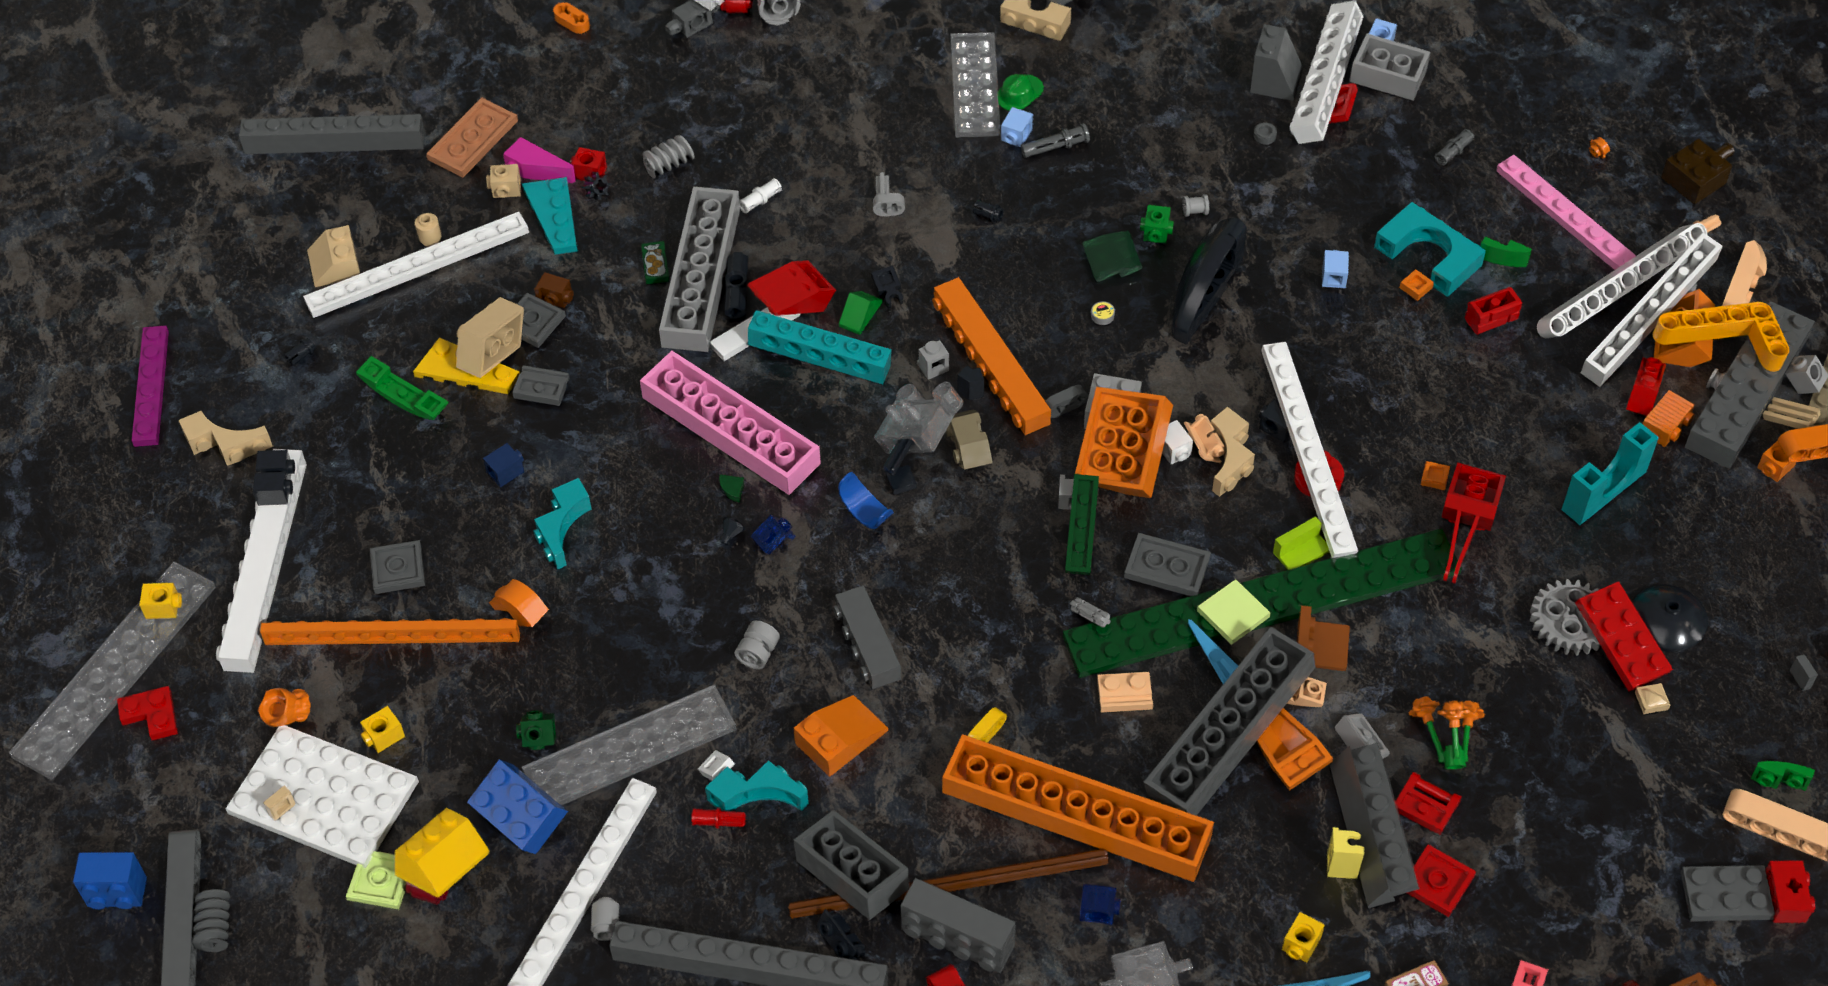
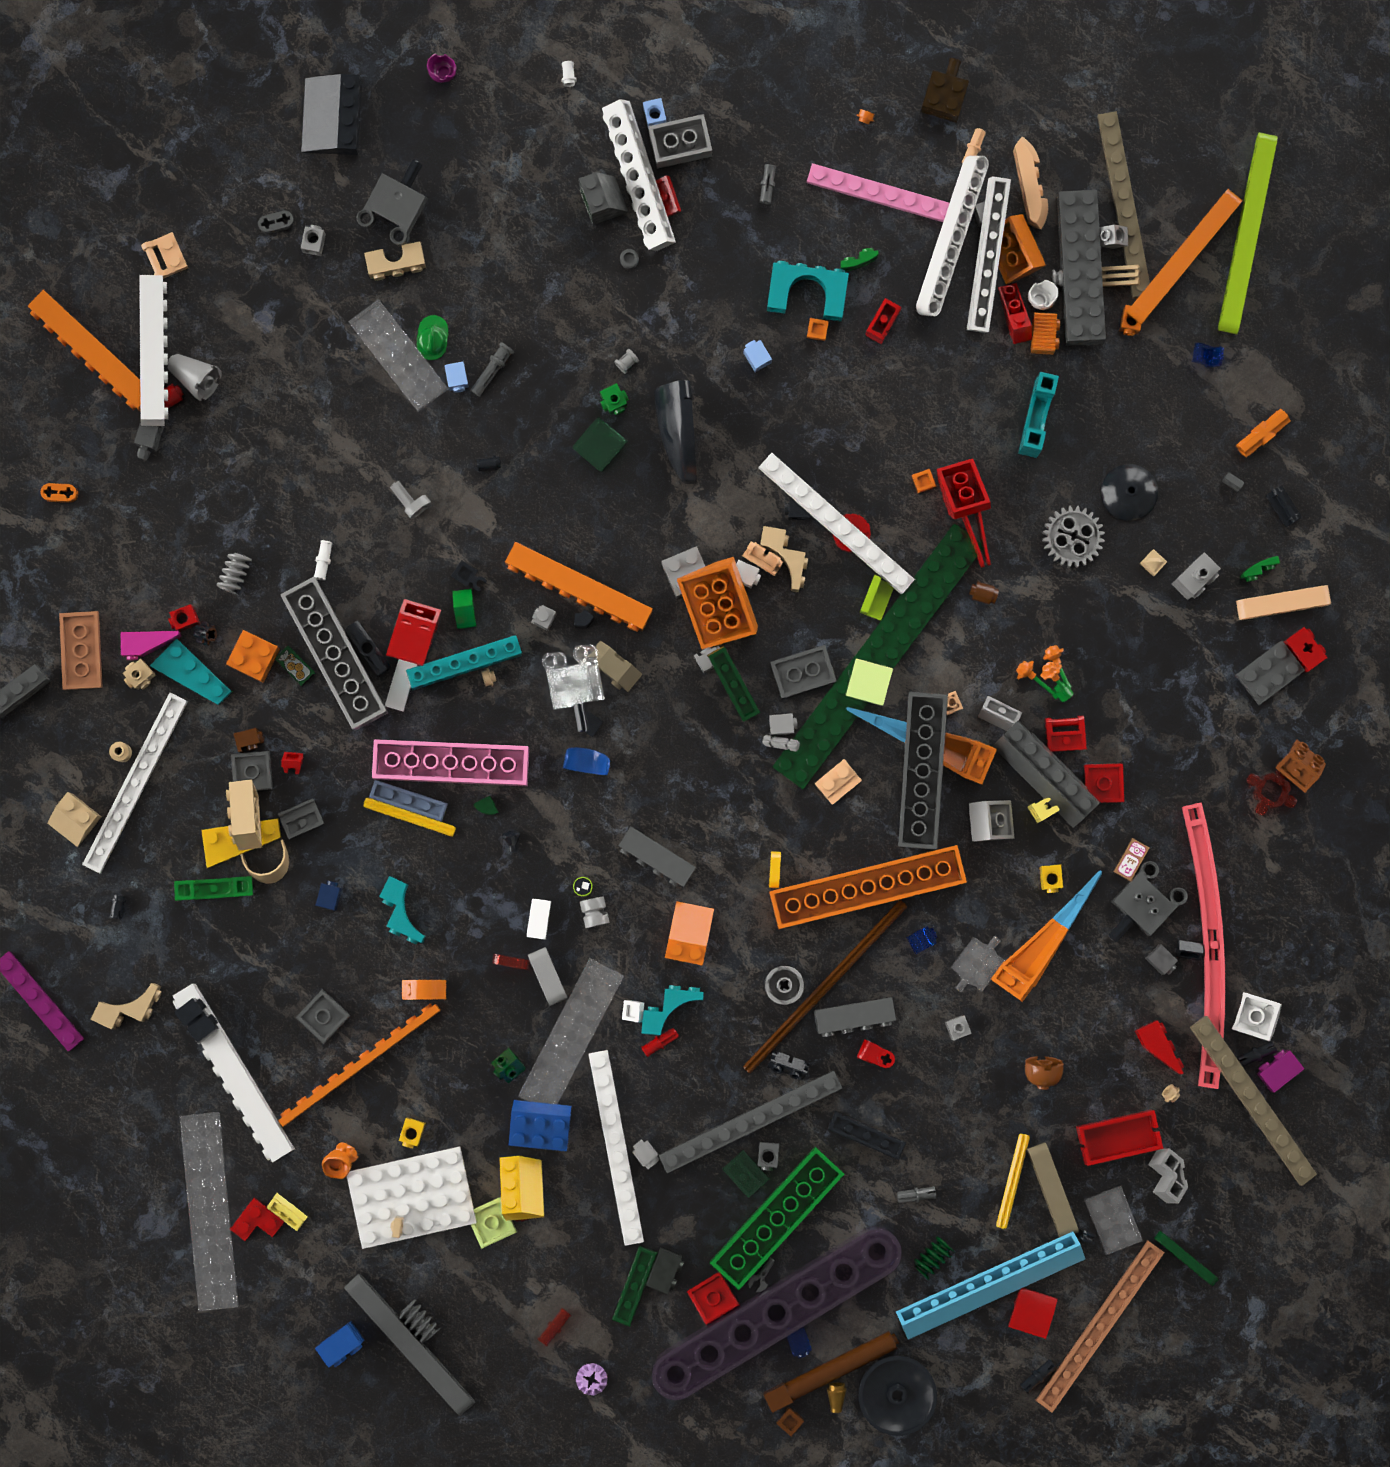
camera: 40 degrees left, 30 degrees up
(156, 592) = (195, 1158): yellow brick -> none
(187, 720) = (287, 1212): none -> light yellow plate
(474, 414) = (274, 875): none -> tan piece
(576, 331) = (292, 760): none -> red tile
(622, 228) = (253, 656): none -> orange brick
(629, 637) = (510, 961): none -> clear red beam
(647, 449) = (409, 816): none -> yellow axle
(655, 675) = (547, 976): none -> light grey beam
(659, 436) = (408, 800): none -> sand blue tile
(695, 620) = (539, 919): none -> white slope
(768, 615) = (582, 886): none -> black tile
(772, 533) = (541, 823): clear blue bracket -> none
(833, 378) = (488, 677): none -> tan plate
(851, 864) = (766, 1022): dark grey brick -> none
(906, 841) = (795, 985): none -> light grey brick
(1067, 400) = (653, 589): dark grey beam -> none
(1102, 313) = (625, 497): tile -> none
(1106, 595) = (782, 724): none -> light grey brick
(1274, 834) = (991, 820): none -> light grey slope
(1325, 639) = (934, 663): dark orange bracket -> none
(1428, 609) = (984, 593): none -> reddish brown brick
(1623, 636) = (1113, 532): red plate -> none
(1690, 385) = (1043, 295): none -> white hair
(1696, 731) = (1198, 574): none -> light grey brick
(1727, 321) = (1046, 242): light orange beam -> none

